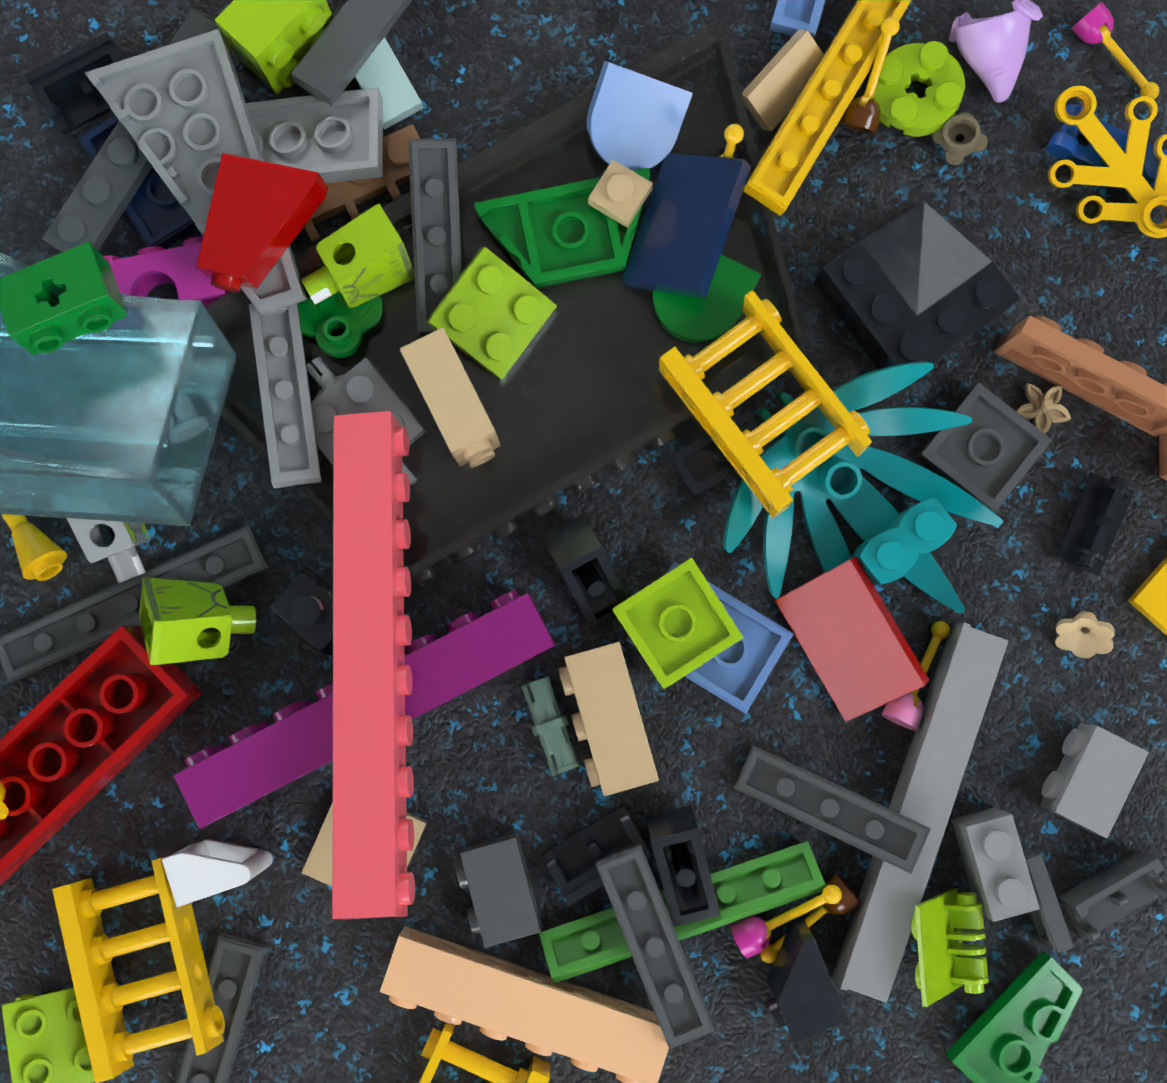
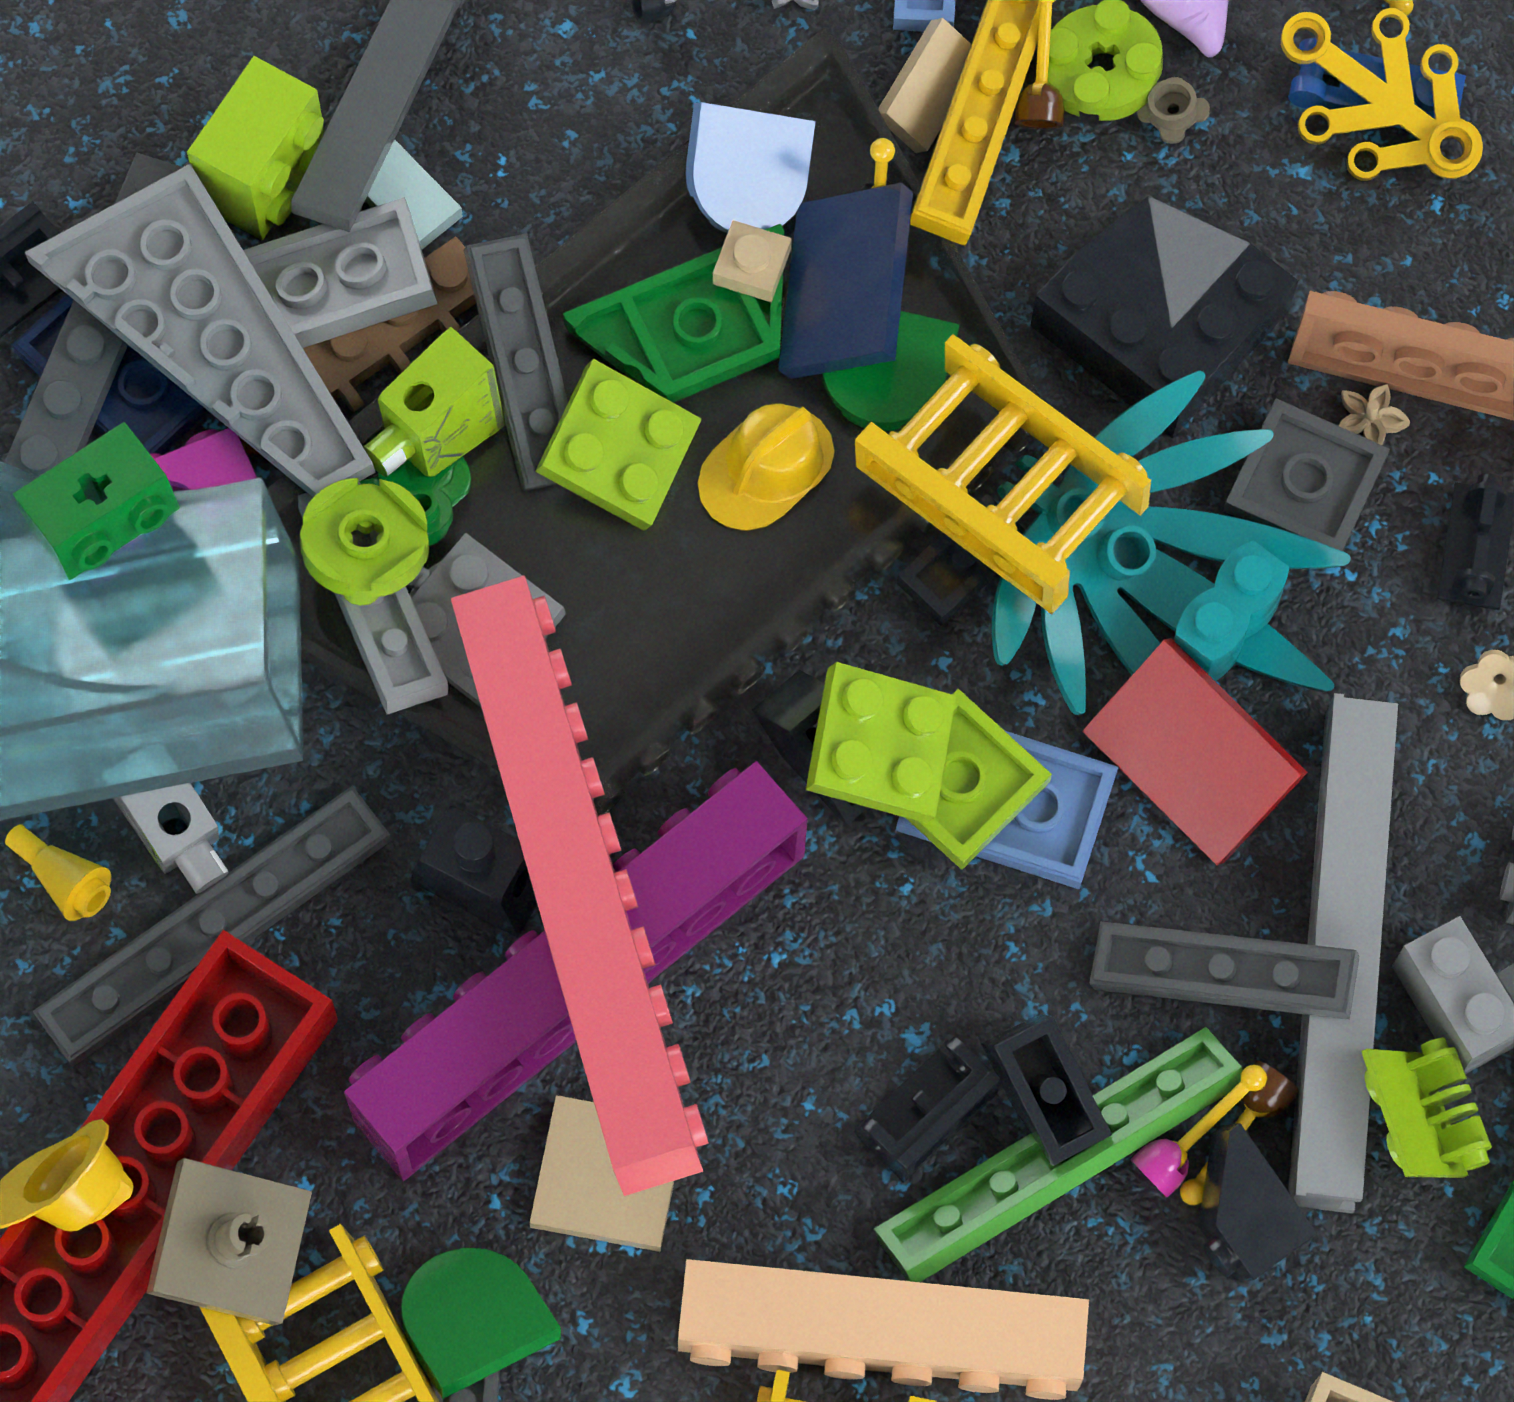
camera: 15 degrees left, 15 degrees down
(76, 857) = (229, 1242): none -> dark tan tile
(189, 620) = (307, 910): lime torso -> none
(212, 868) = (417, 1224): white tile -> none
(244, 935) = (473, 1317): none -> green tile
(255, 219) = (296, 377): red slope -> none
(293, 327) = (358, 571): none -> lime plate
(451, 398) = (595, 555): tan window -> none
(499, 890) = (807, 1180): dark grey brick -> none
(550, 726) = (822, 955): sand green pin -> none
(596, 350) = (765, 466): none -> yellow piece
(608, 719) = (899, 925): tan brick -> none
(624, 592) = (881, 742): none -> lime plate
(654, 946) = (1034, 1189): dark grey tile -> none
(908, 709) = (1290, 829): hinge -> none

